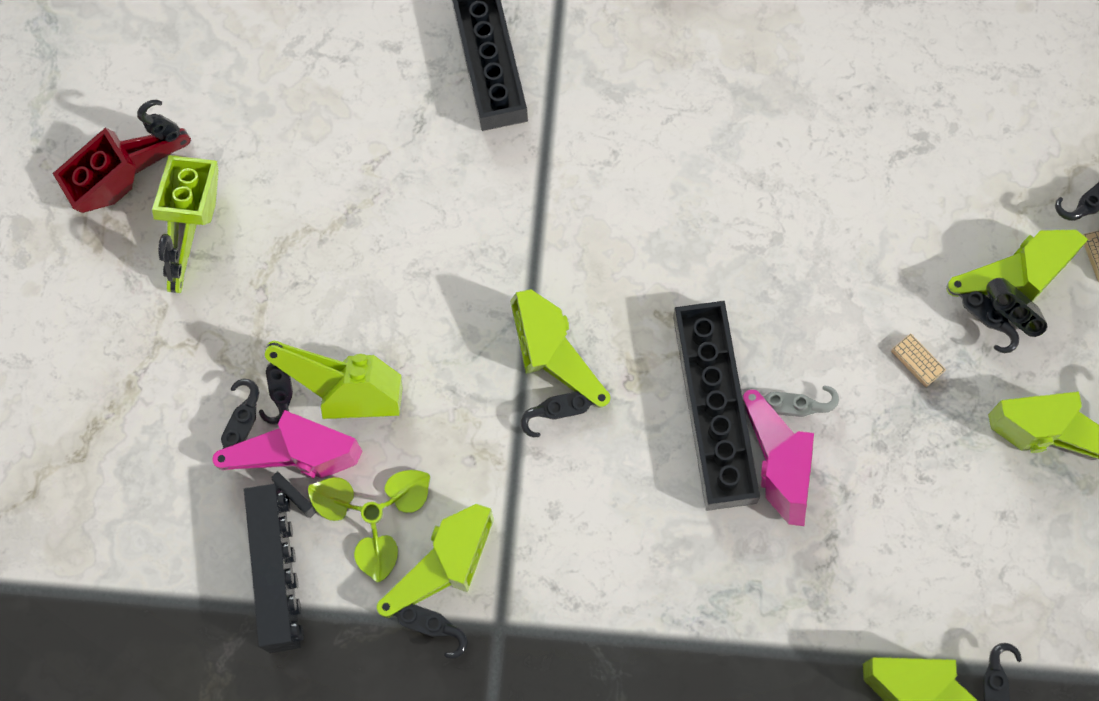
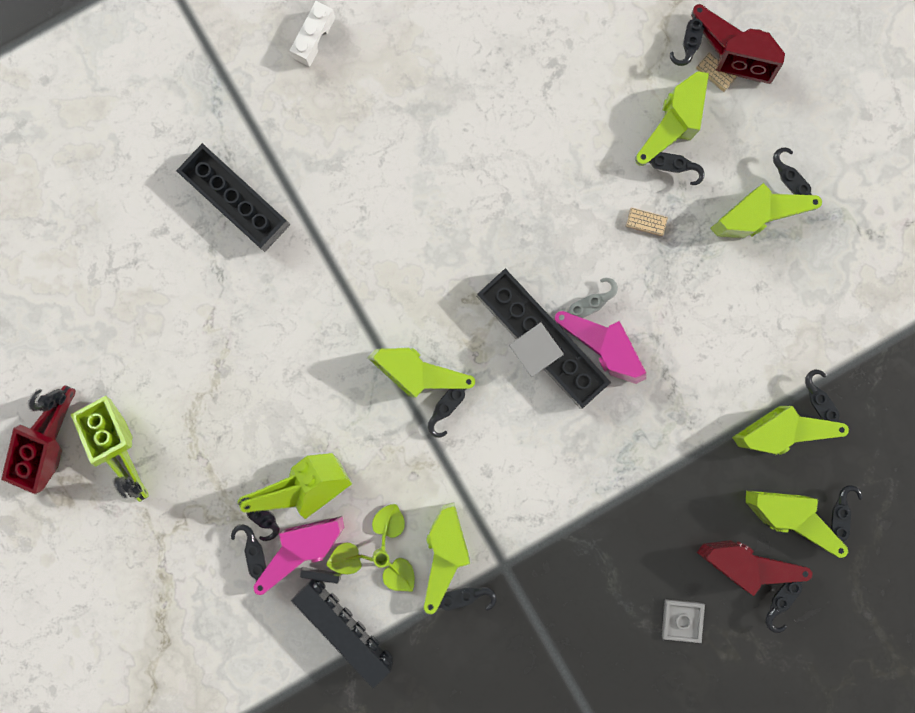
camera: 40 degrees left, 15 degrees up
(699, 405) = (536, 349): none -> light grey tile
(1016, 307) = (689, 148): black beam -> none

